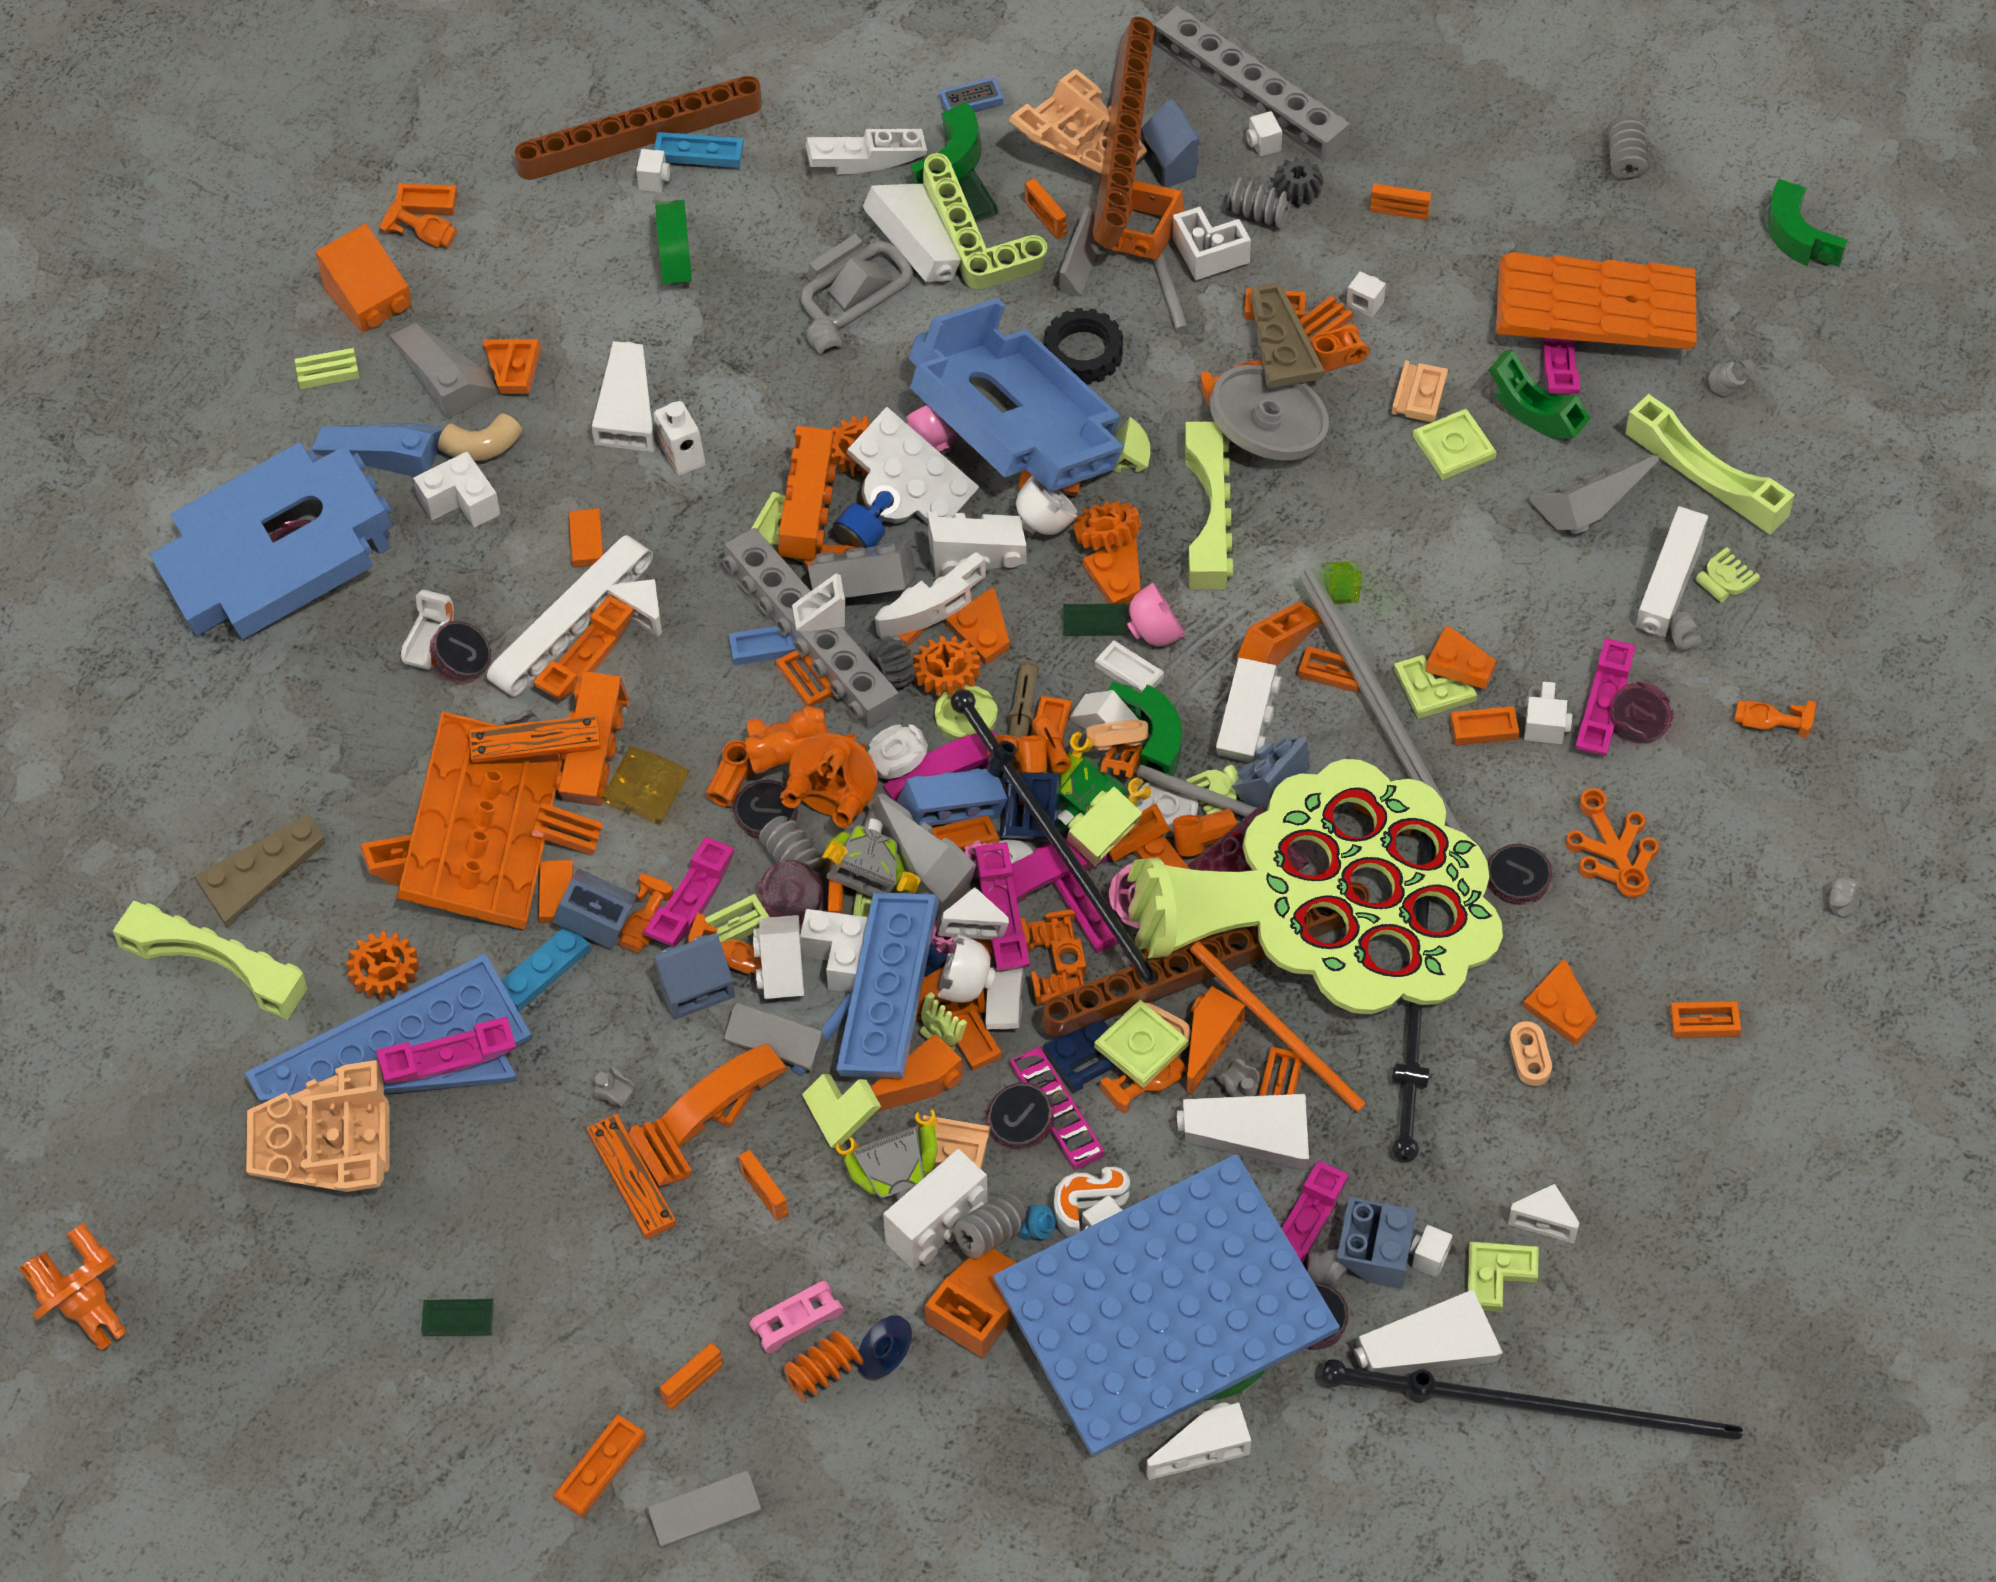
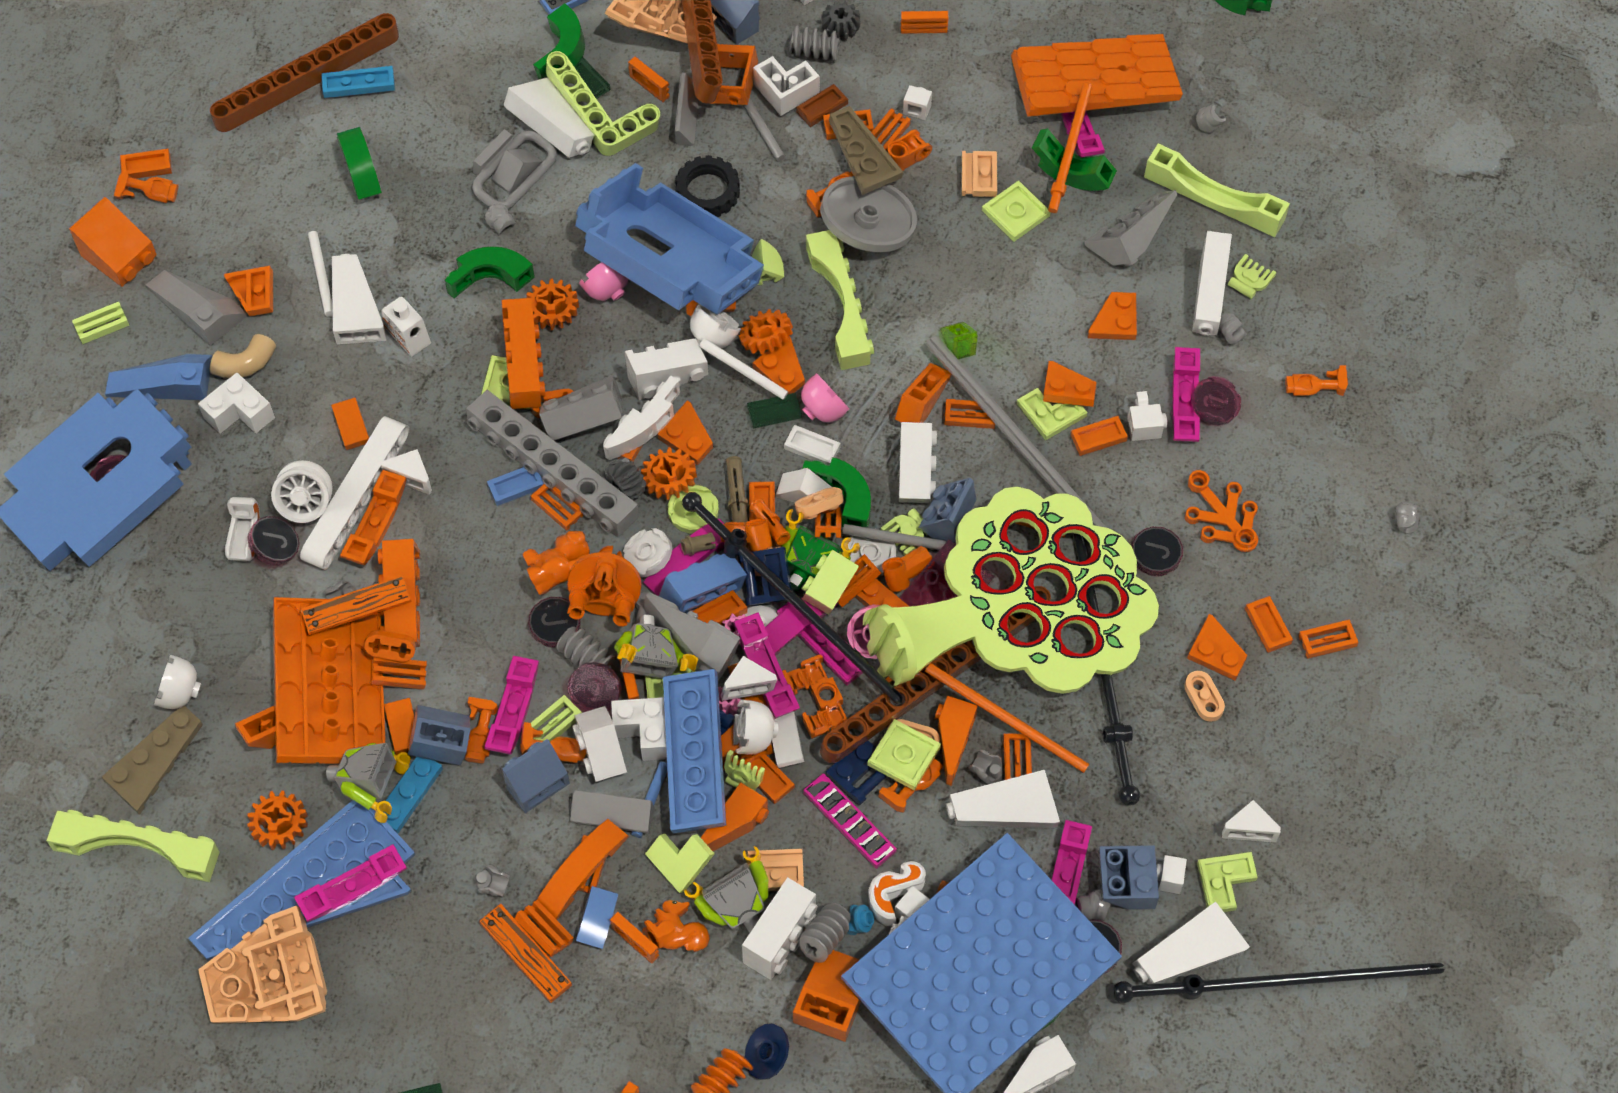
camera: 15 degrees left, 5 degrees up
(307, 788) = (177, 684): none -> white cylinder
(496, 932) = (365, 775): none -> torso
(507, 600) = (302, 491): none -> white wheel
(561, 801) = (392, 651): none -> orange beam
(597, 358) = (321, 273): none -> white bar
(645, 784) = (452, 621): clear yellow slope -> none
(652, 170) = (325, 106): white plate -> none
(723, 1152) = (597, 917): none -> medium blue slope
(730, 774) = (519, 599): orange piece -> none
(796, 385) = (489, 263): none -> green arch
(796, 1316) = (688, 1041): bright pink plate -> none
(808, 1189) = (671, 932): none -> orange animal
(821, 607) = (559, 446): white slope -> none
(873, 152) = (496, 59): white slope -> none
(902, 481) = (595, 326): white plate -> none
(957, 751) = (696, 544): none -> dark tan pin
(1021, 1115) = (824, 834): black tile -> none
(1068, 563) = (743, 369): none -> white bar
(1247, 275) = (822, 104): none -> dark orange tile
(1512, 423) = (1059, 188): none -> orange bar
(1543, 592) = (1116, 318): none -> orange wing
(1635, 987) = (1268, 624): none -> orange tile

